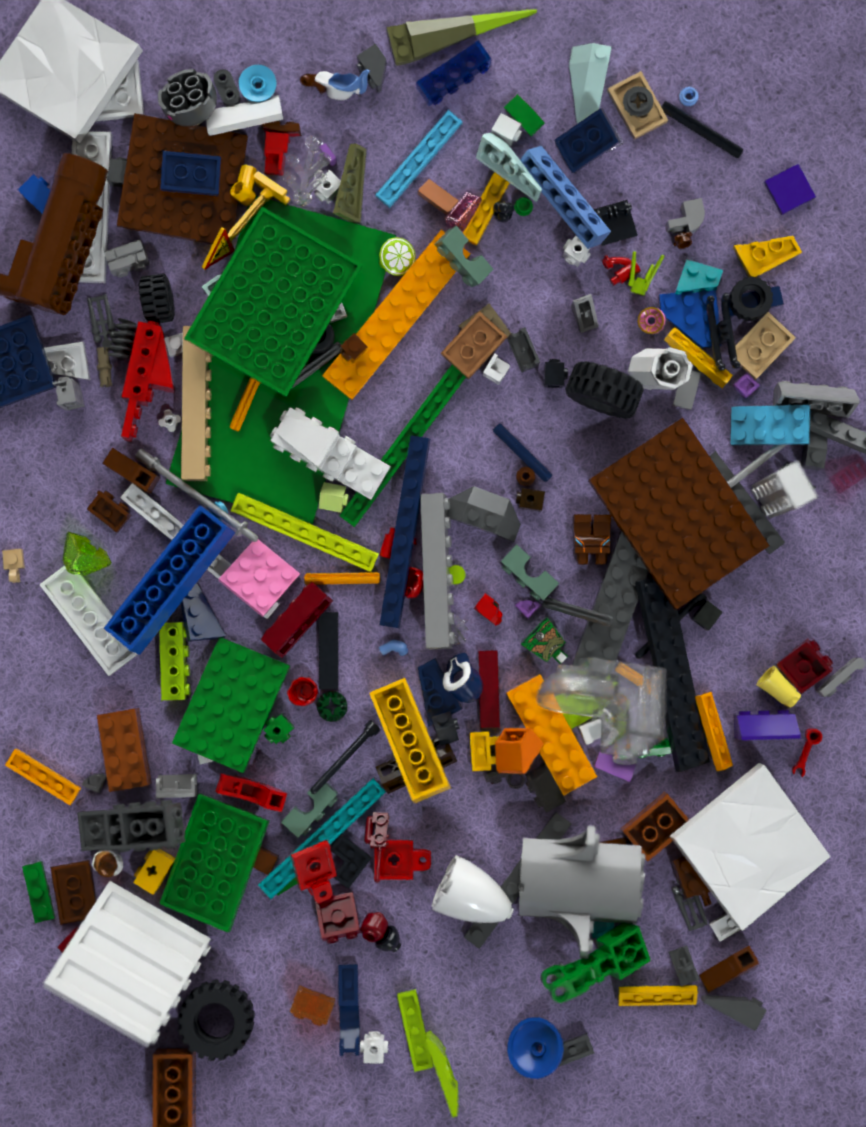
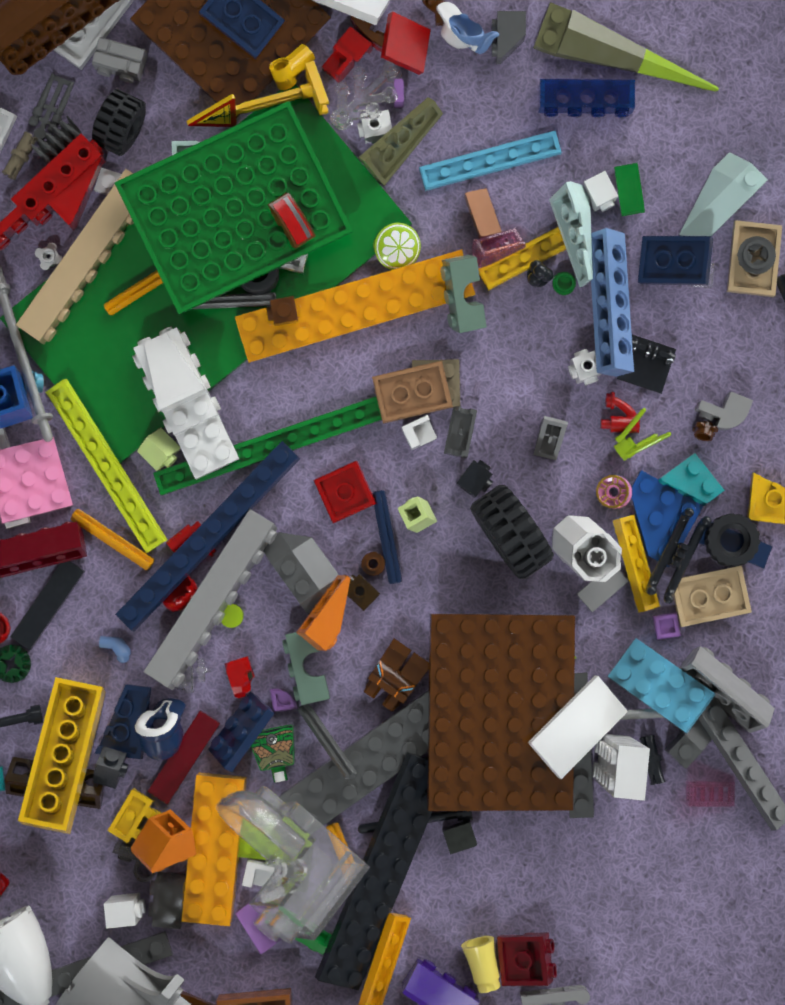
camera: 30 degrees right, 0 degrees up
(310, 118) = (405, 43): none -> red tile
(318, 282) = (292, 220): none -> slope
(474, 441) = (345, 492): none -> red tile
(515, 645) = (240, 731): none -> dark blue plate
(520, 814) = (124, 910): none -> white brick
(521, 531) = (326, 618): none -> orange slope
(532, 423) = (417, 514): none -> yellowish green brick
(735, 488) = (578, 727): none -> white tile

